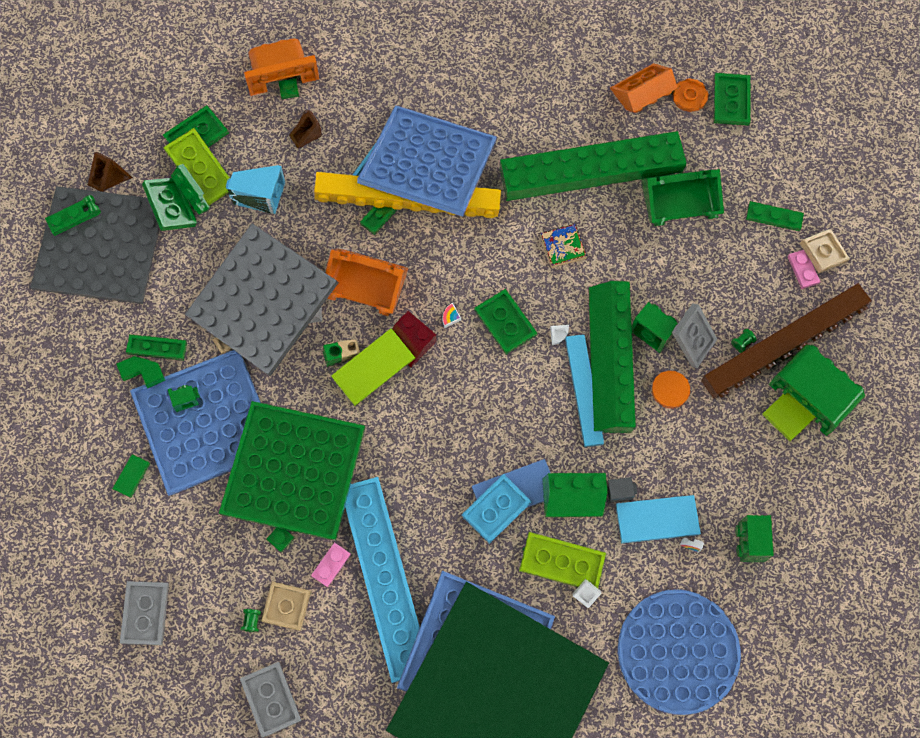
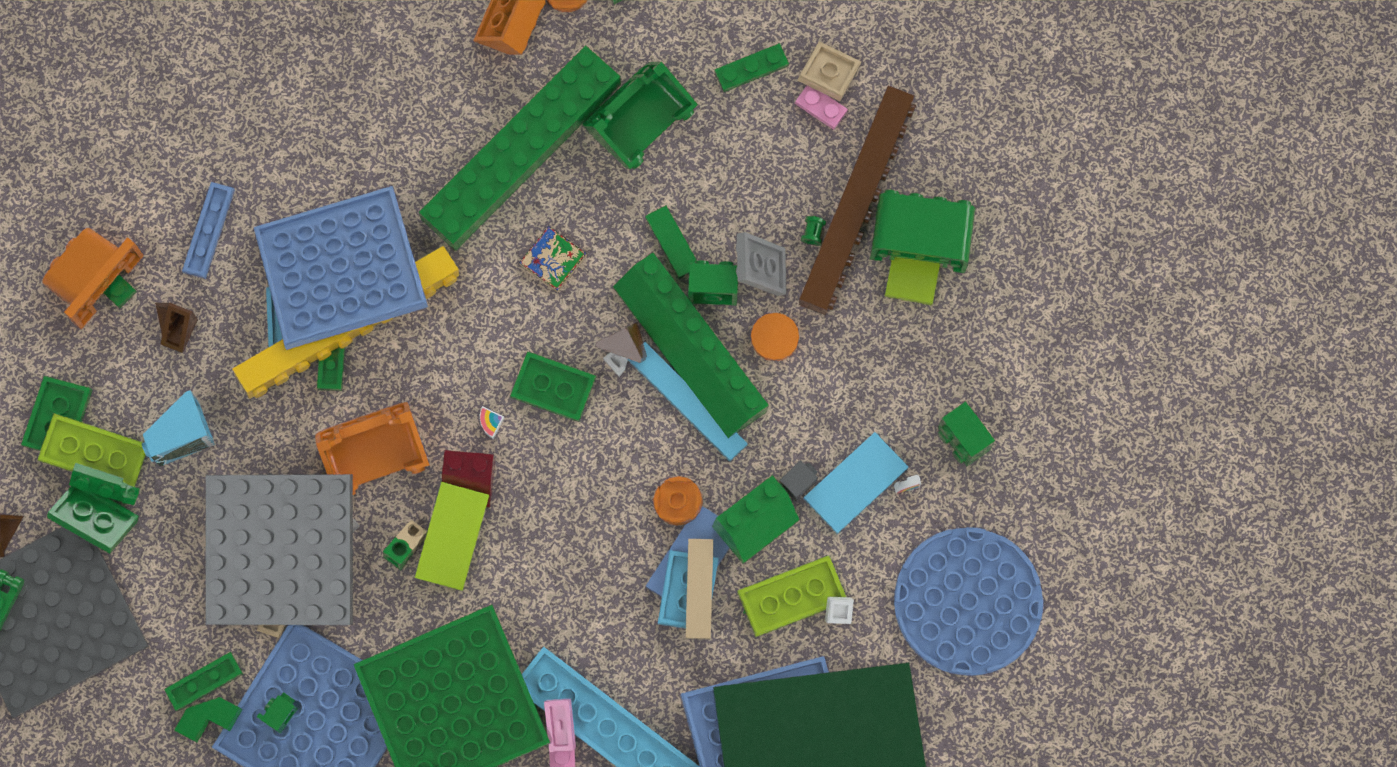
camera: 35 degrees left, 5 degrees up
(350, 533) = (560, 725): none -> bright pink plate
(367, 89) = (208, 230): none -> medium blue tile
(504, 512) = (699, 589): none -> tan tile
(532, 447) = (678, 501): none -> orange tile
(571, 324) = (625, 343): none -> slope
(646, 283) = (671, 240): none -> green tile

